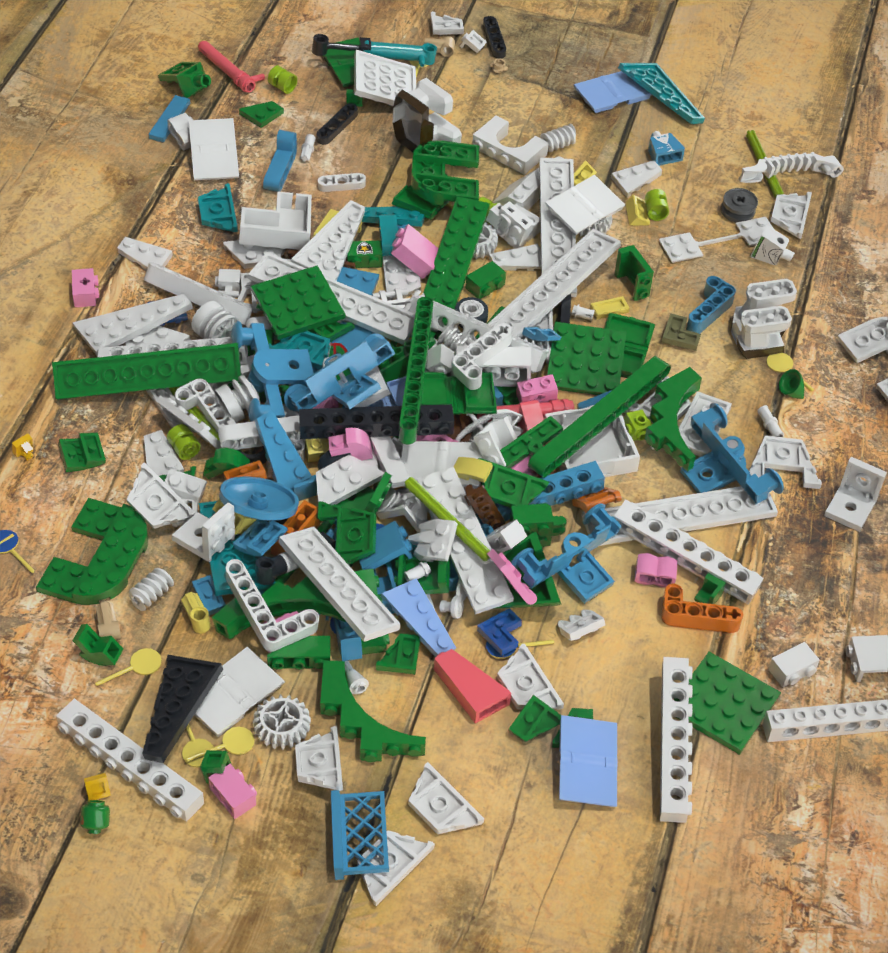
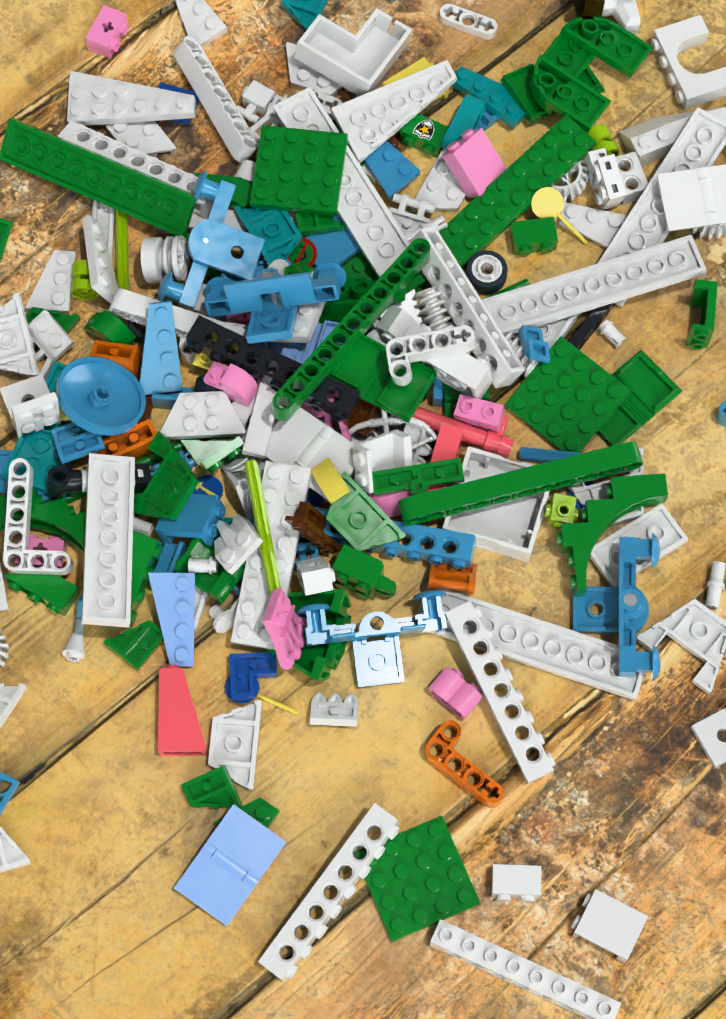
camera: 35 degrees right, 20 degrees up
(202, 398) = (130, 240): white beam -> none
(213, 321) = (204, 149): white wheel -> none
(356, 723) = (44, 655): green arch -> none
(441, 804) = (65, 823): white wing -> none
(484, 253) = (549, 203): none -> light yellow piece
(615, 305) = (649, 341): light yellow tile -> none
(677, 336) = (696, 419): olive plate -> none
(711, 590) = (494, 749): green panel -> none

